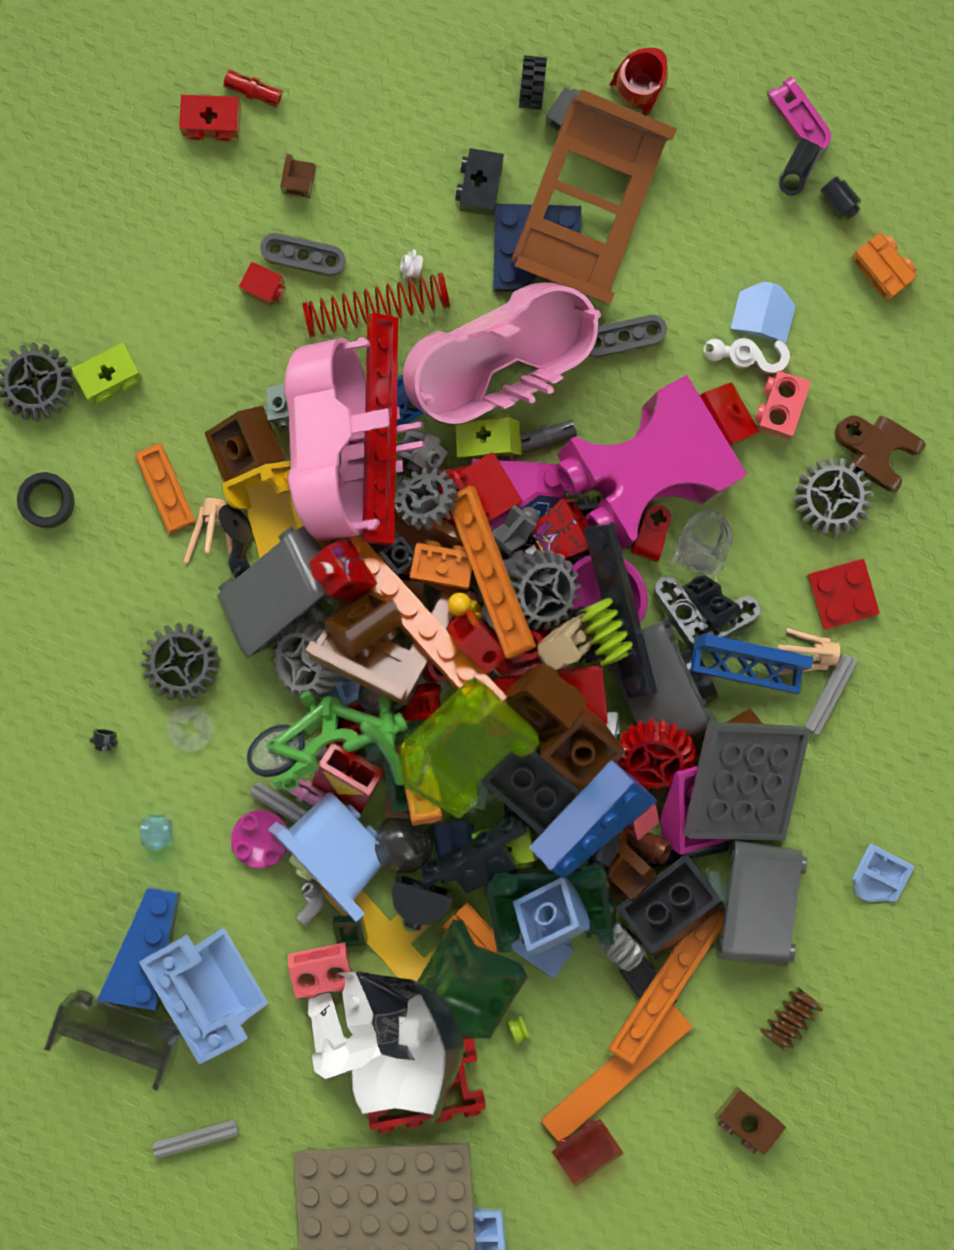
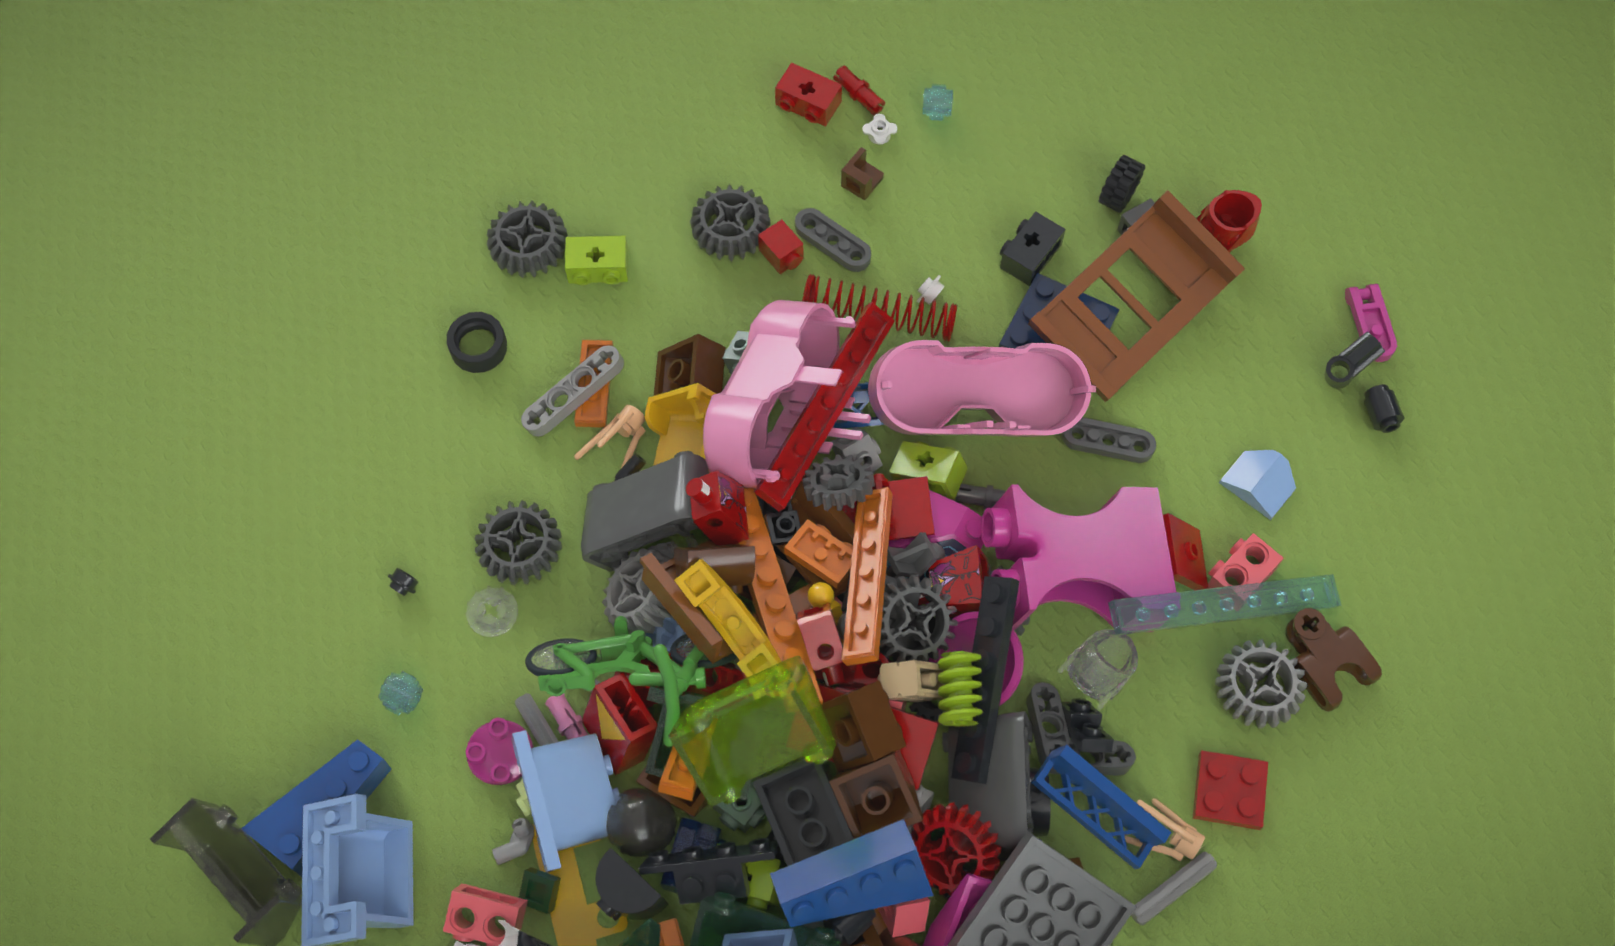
camera: 25 degrees right, 20 degrees down
(158, 510) = (569, 387): none -> light grey beam
(200, 292) = (727, 232): none -> dark grey gear
(235, 524) = (641, 439): black piece -> none
(294, 128) = (879, 136): none -> white plate
(331, 70) = (937, 102): none -> clear light blue gear
(404, 666) = (729, 617): none -> yellow slope
(651, 538) = (1050, 637): red piece -> none
(745, 353) = (1226, 508): white piece -> none
(780, 450) = (1223, 604): none -> clear light blue tile
(884, 266) = (1404, 488): orange brick -> none

